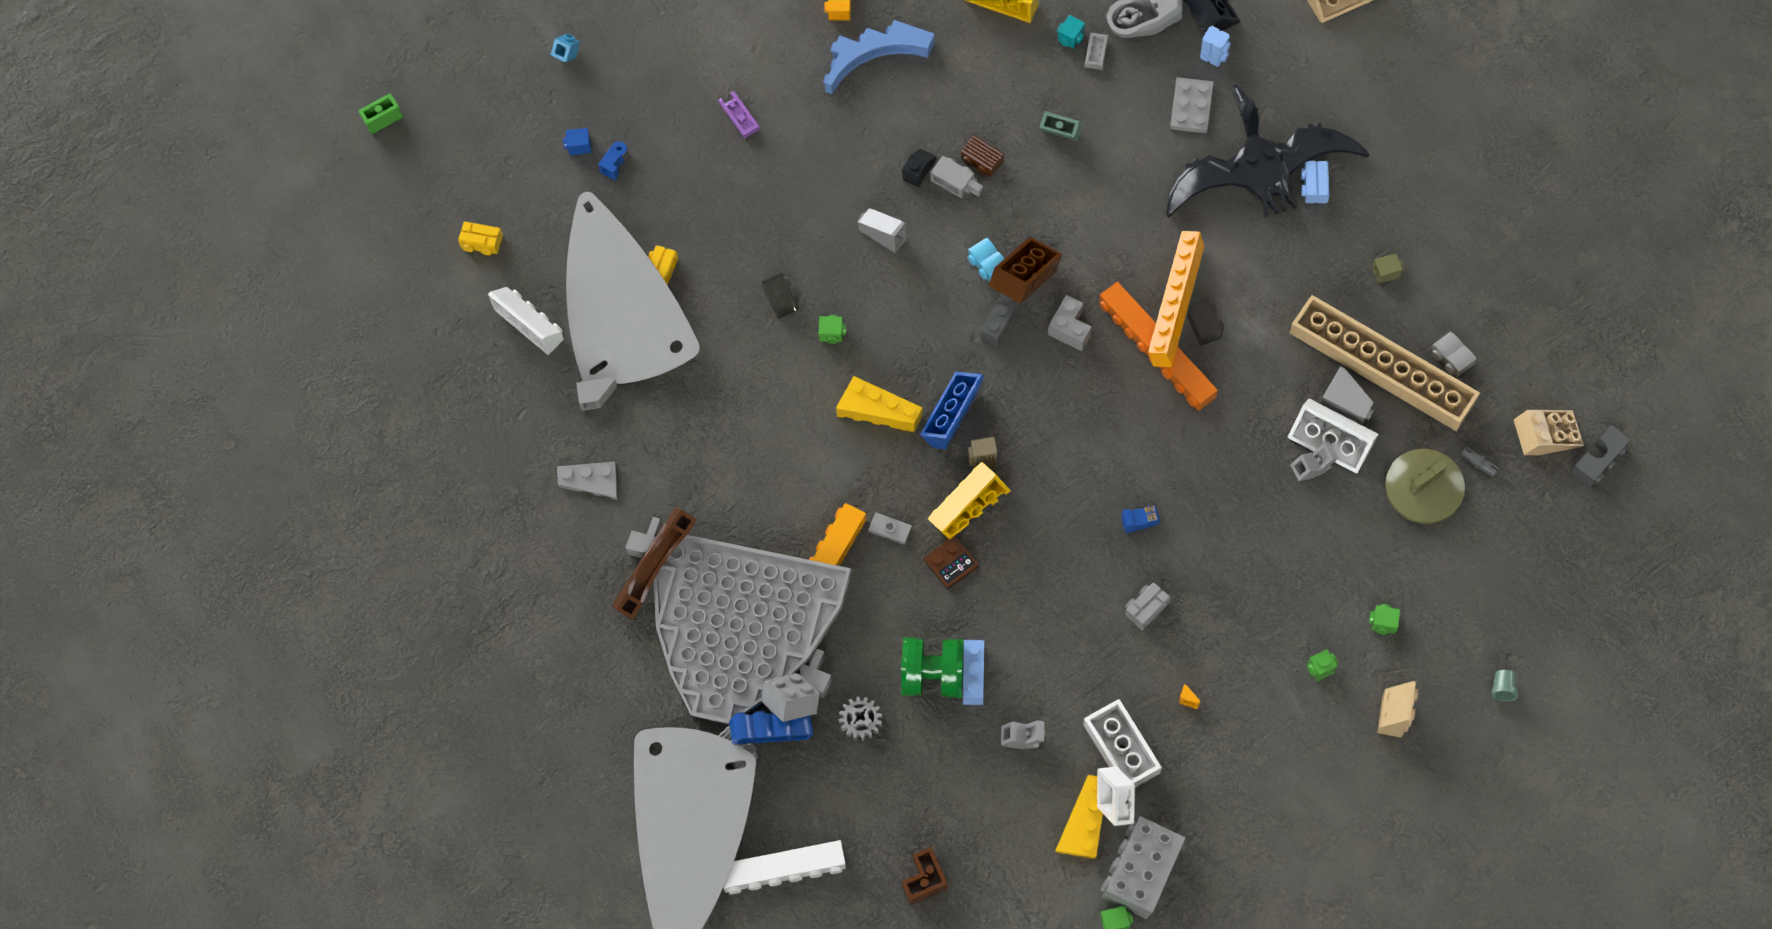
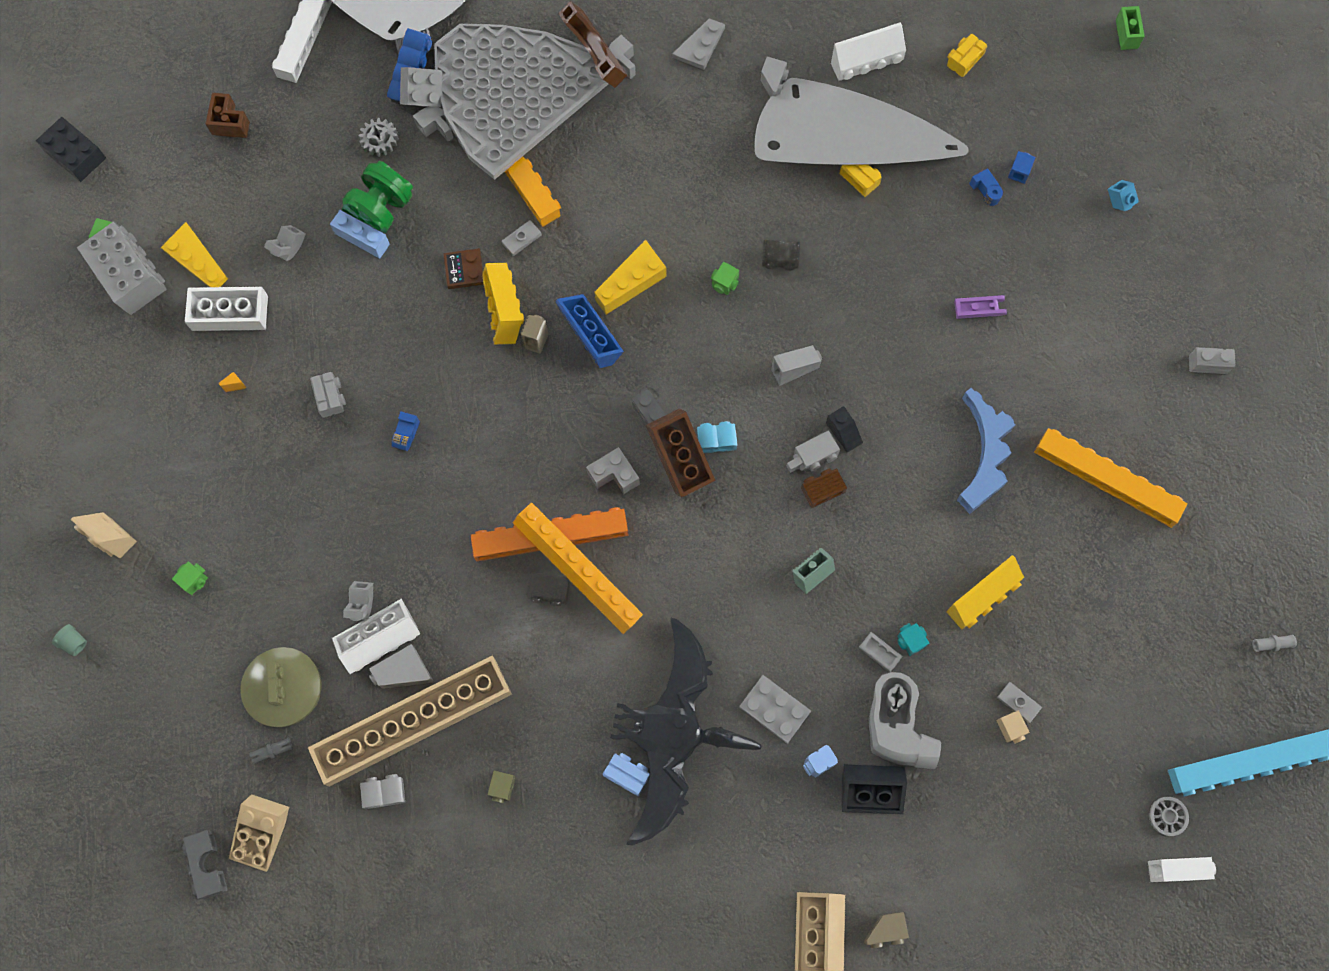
camera: 115 degrees right, 5 degrees up
(1112, 801) = (181, 269): white window -> none
(1322, 665) = (186, 501): bright green brick -> none

